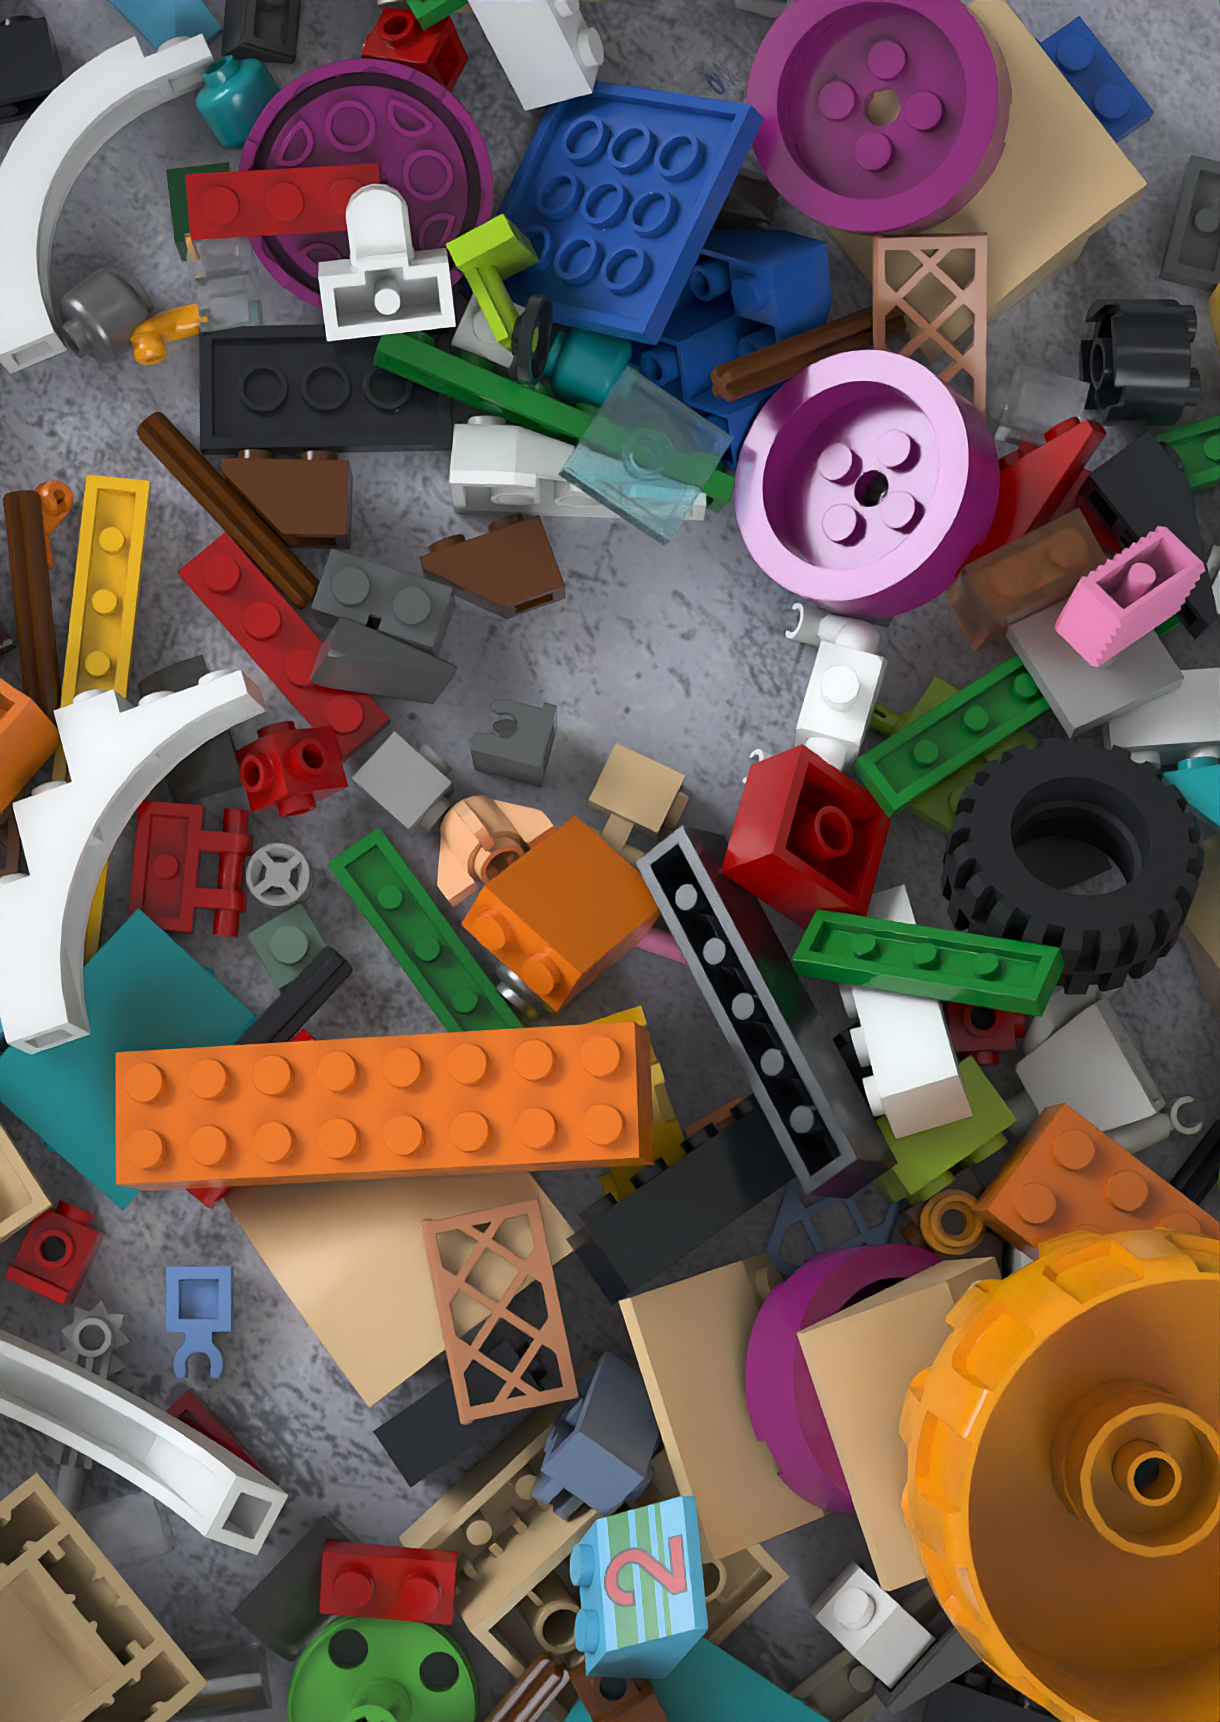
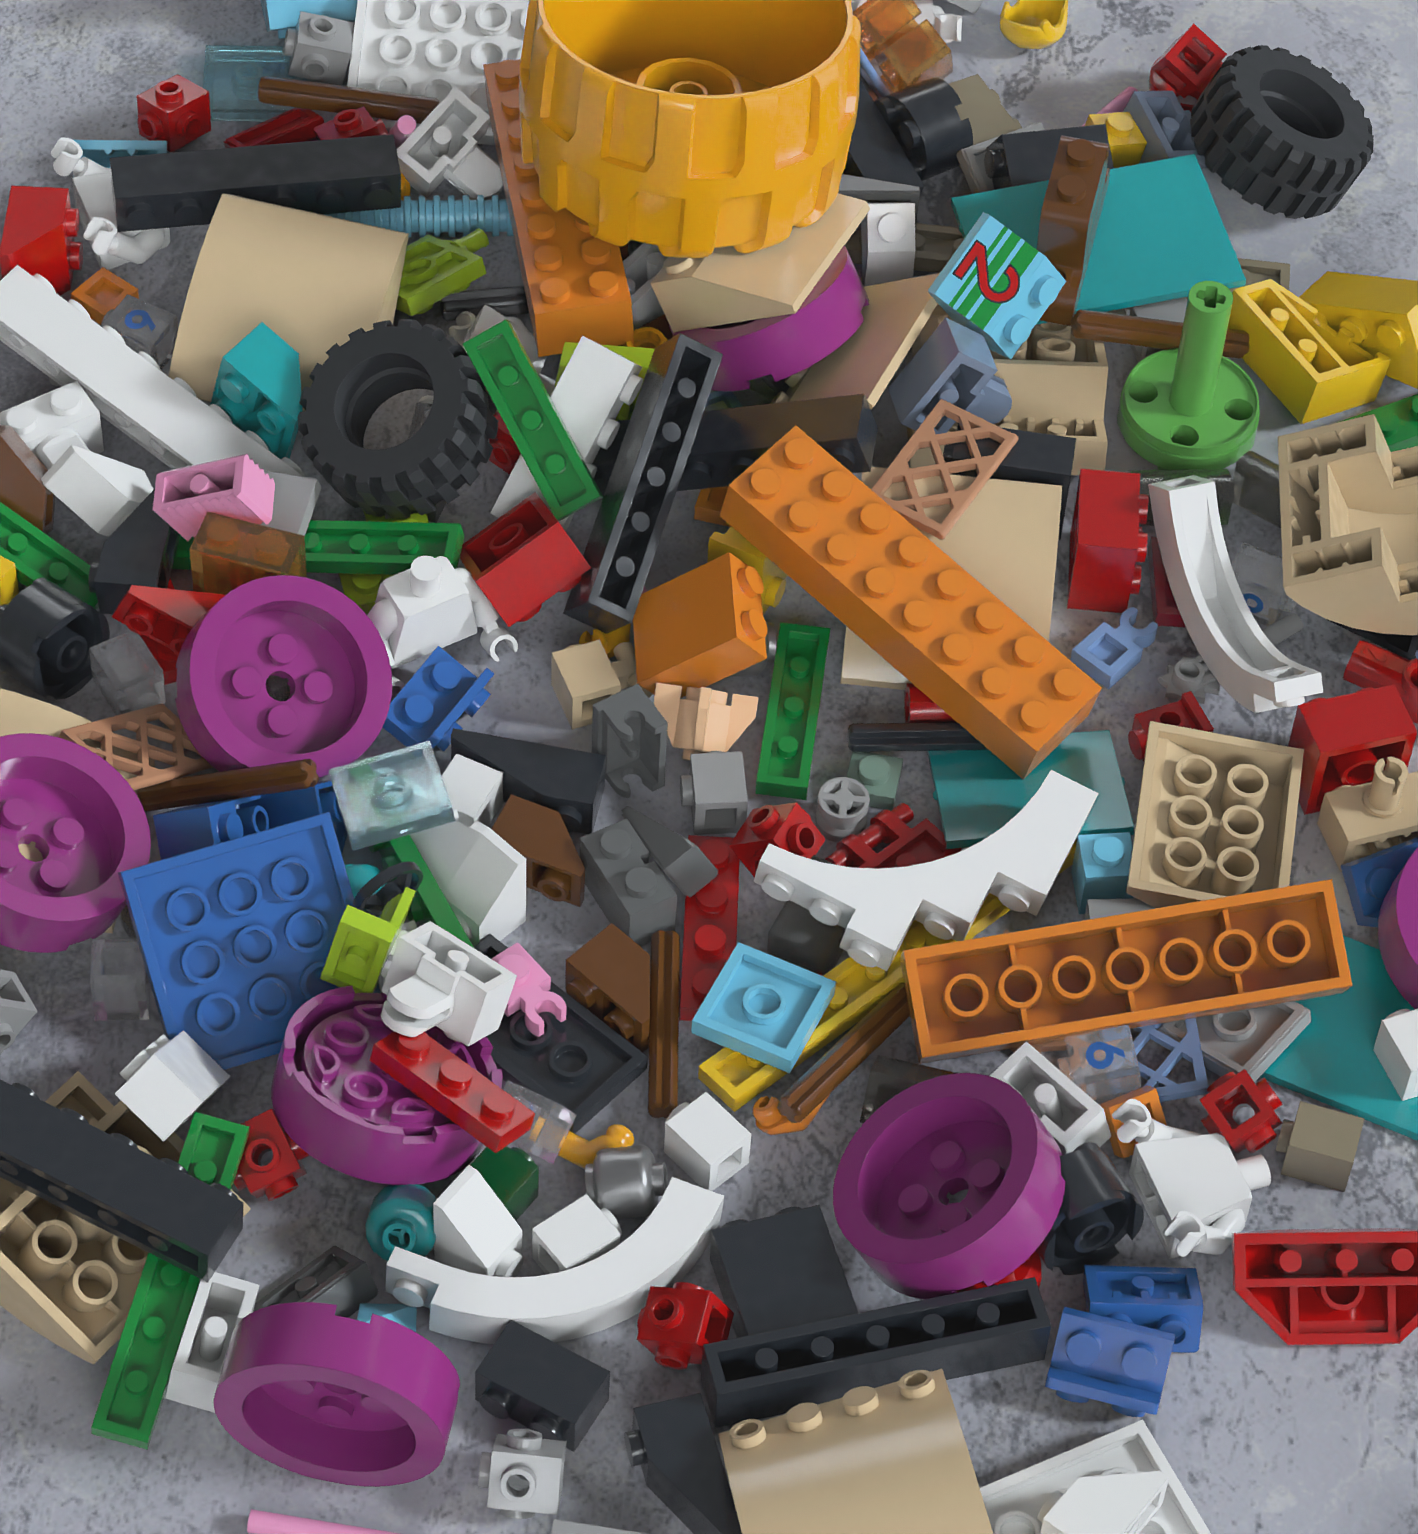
camera: 135 degrees left, 30 degrees down
(76, 417) = (706, 1141): none -> white brick
(90, 223) = (574, 1236): none -> white brick
(140, 580) = (763, 1007): none -> medium azure tile
(163, 136) = (476, 1229): none -> white slope
(299, 1421) = (1106, 541): none -> red brick
(374, 405) = (530, 989): none -> bright pink plate
(388, 1582) = (1131, 437): red plate -> none
(568, 645) = (542, 774): none -> black slope
(612, 561) = (473, 790): none -> white brick
(745, 643) = (435, 700): none -> blue bracket

